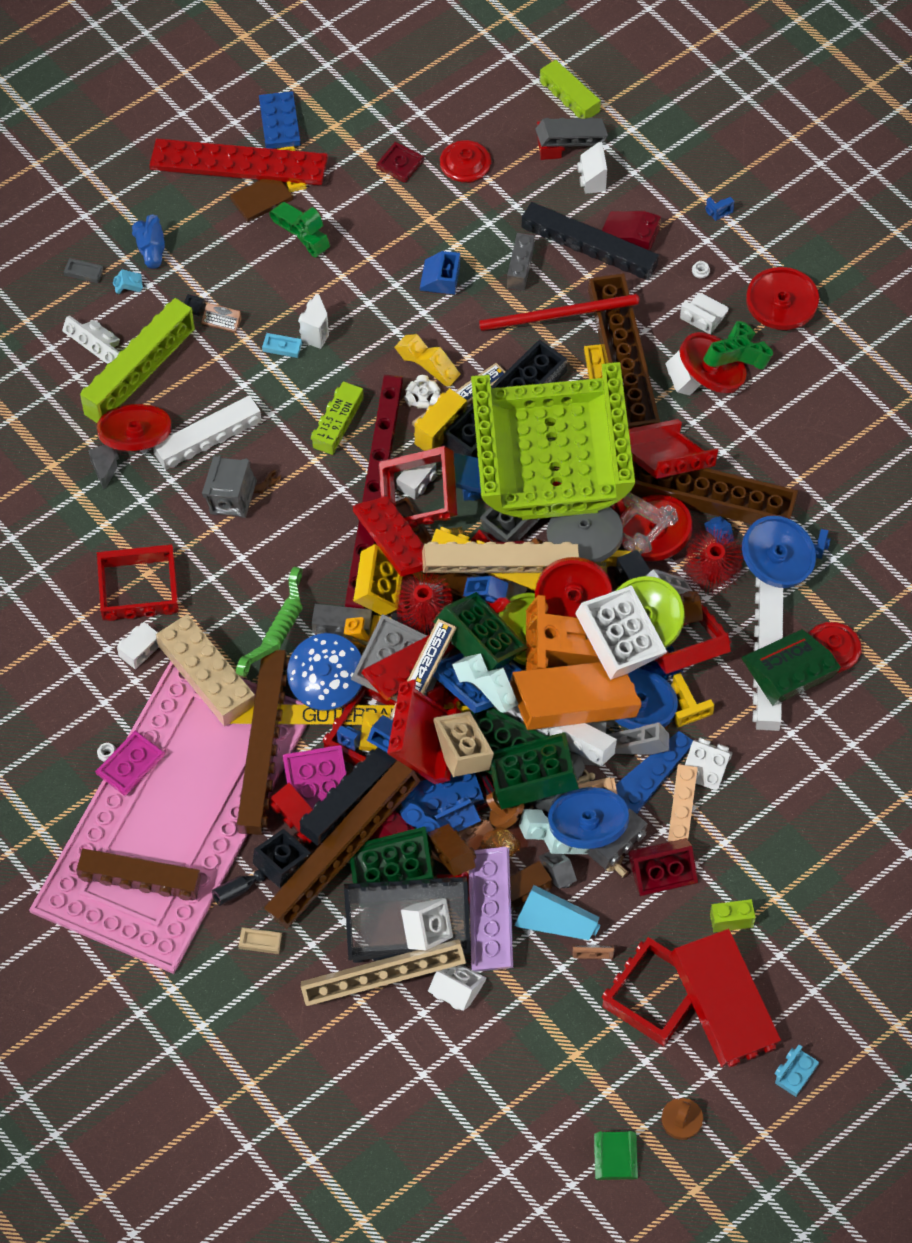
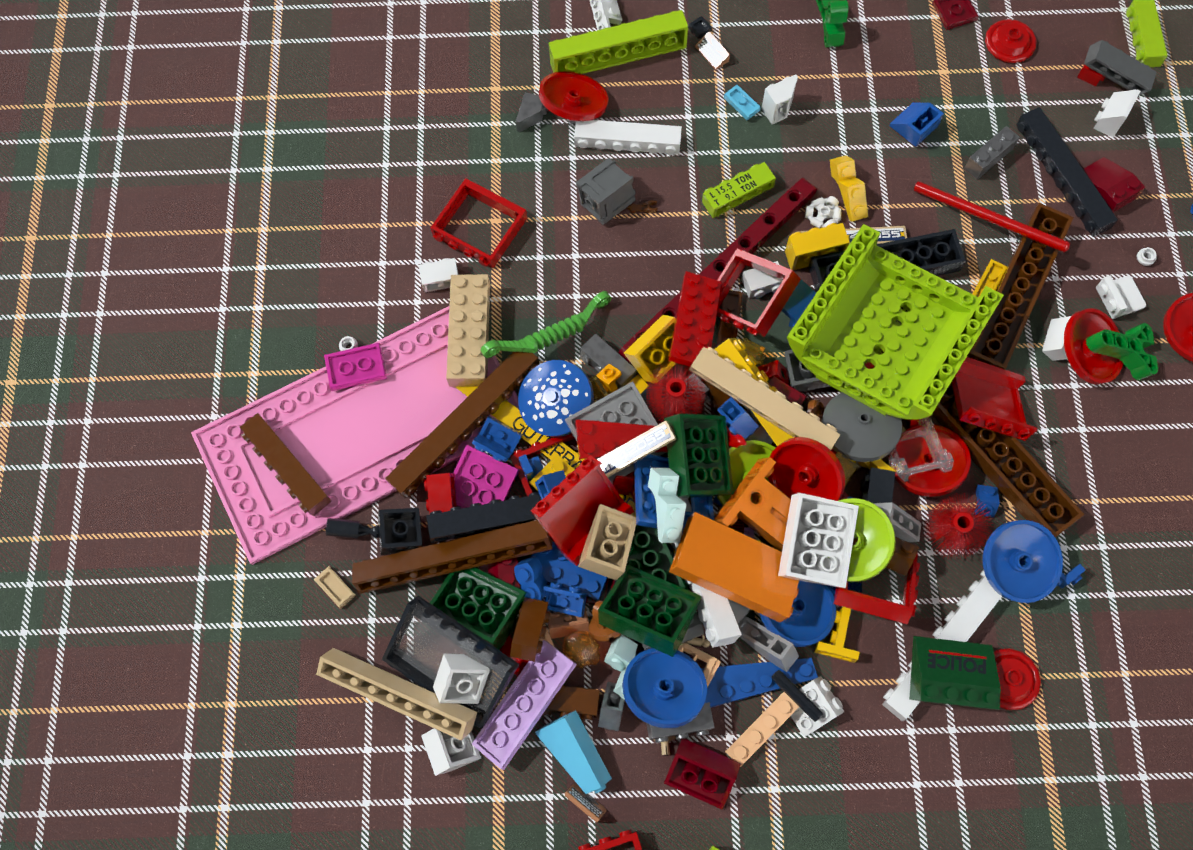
camera: 40 degrees right, 10 degrees up
(303, 733) = (497, 439): none -> blue bracket
(689, 760) = (797, 696): none -> black axle

